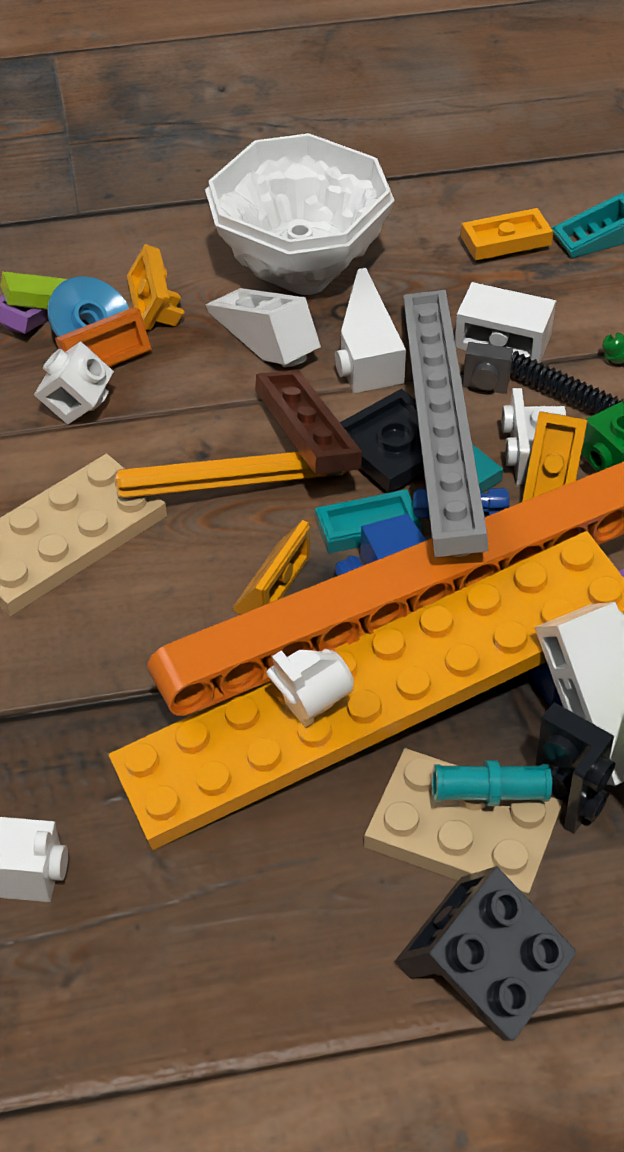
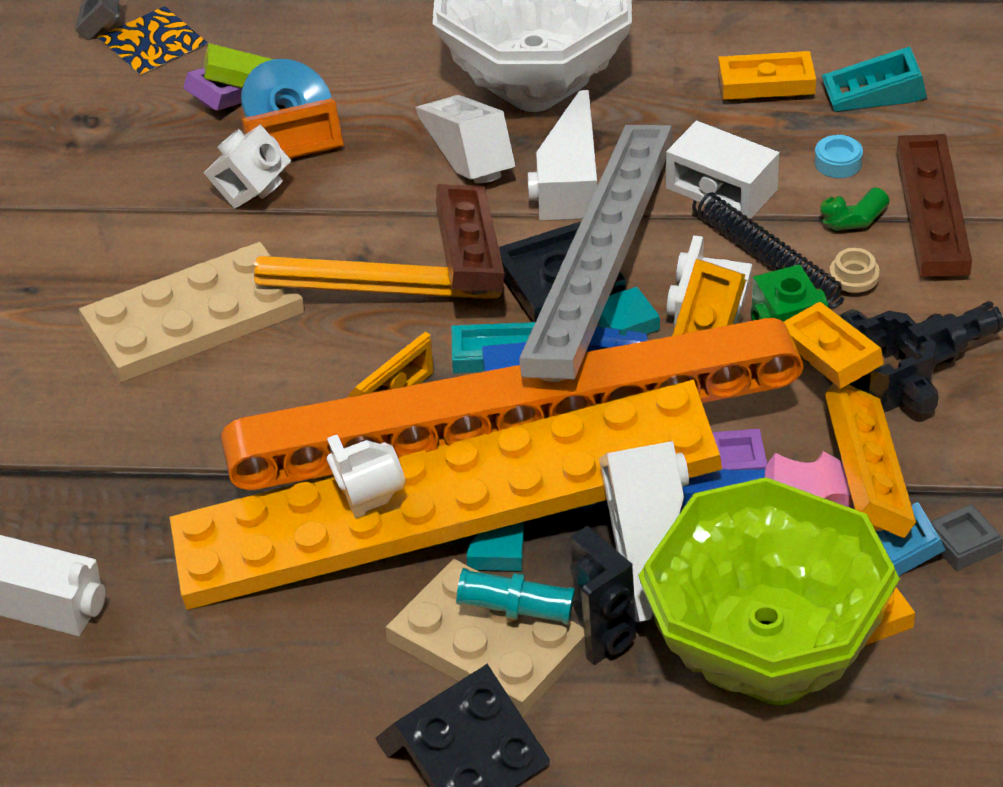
camera: 15 degrees right, 5 degrees down
(150, 290) = (358, 91): light orange plate -> none
(441, 732) = (498, 549): none -> teal tile
(487, 367) = (684, 211): flat silver plate -> none
(594, 297) = (838, 156): none -> medium azure tile

